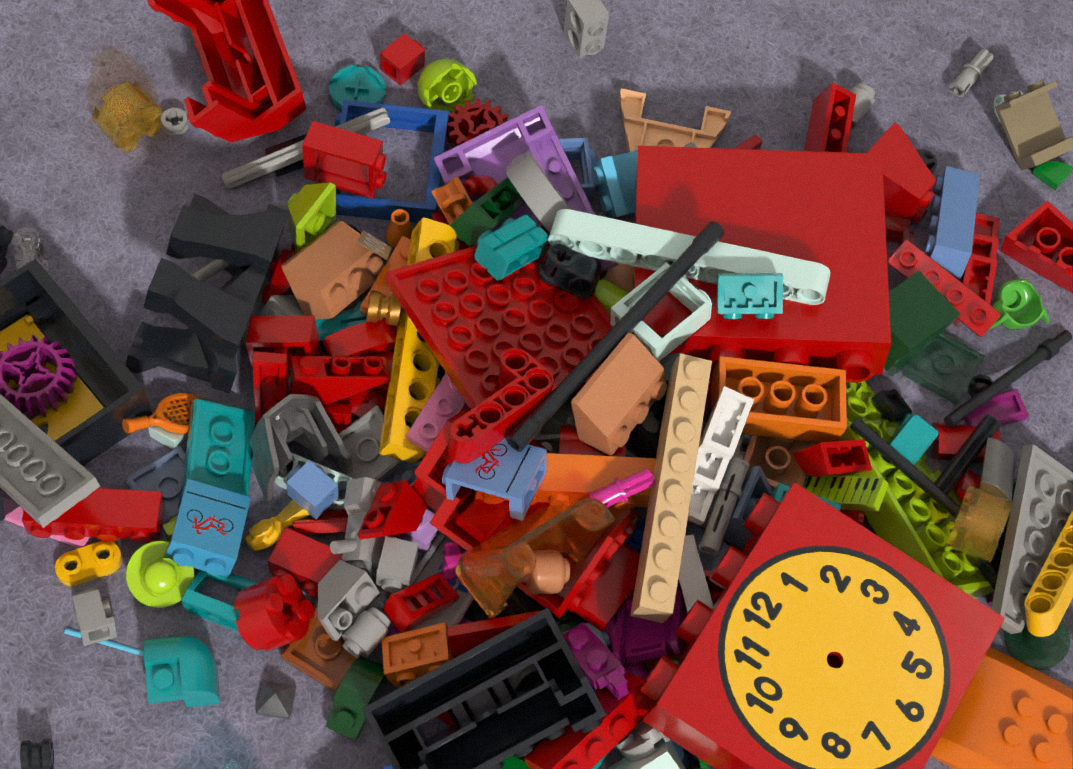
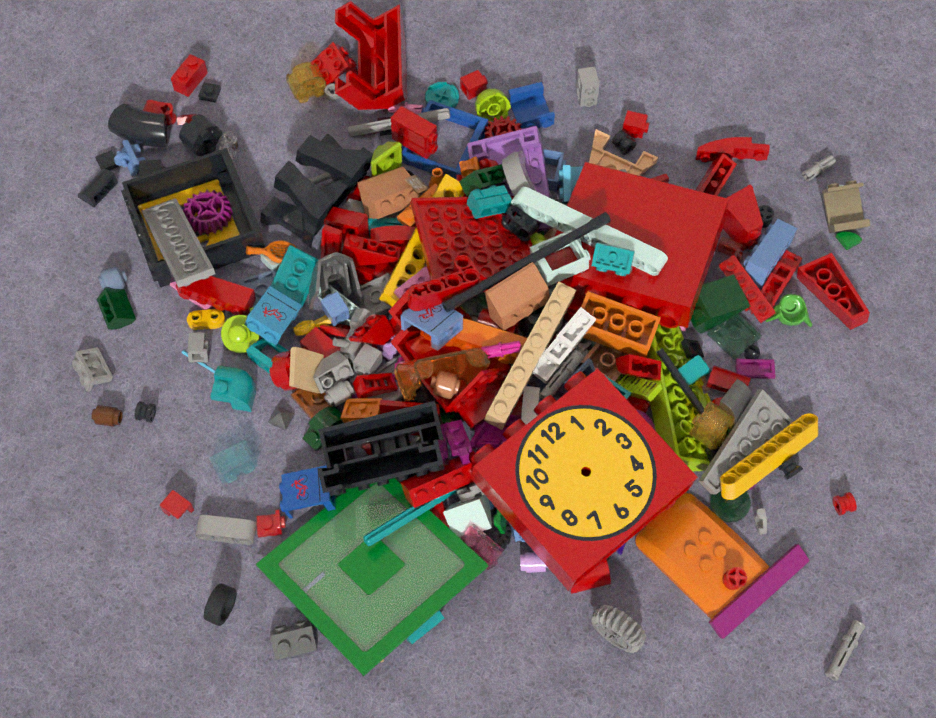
camera: 25 degrees right, 0 degrees up
(164, 72) = (334, 62): none -> red bracket
(297, 608) = (303, 367): none -> tan tile
(303, 122) = (412, 107): none -> bright pink axle
(381, 307) = (406, 219): pearl gold wheel -> none
(505, 76) = (530, 106): none -> blue panel
(670, 99) = (624, 142): none -> black wheel
(677, 67) = (636, 124): none -> red brick
(841, 69) = (733, 147): none -> red slope
(863, 101) = (742, 168): light grey cone -> none
(967, 453) = (723, 386): black axle -> none
(1044, 351) = (801, 341): black bar -> none

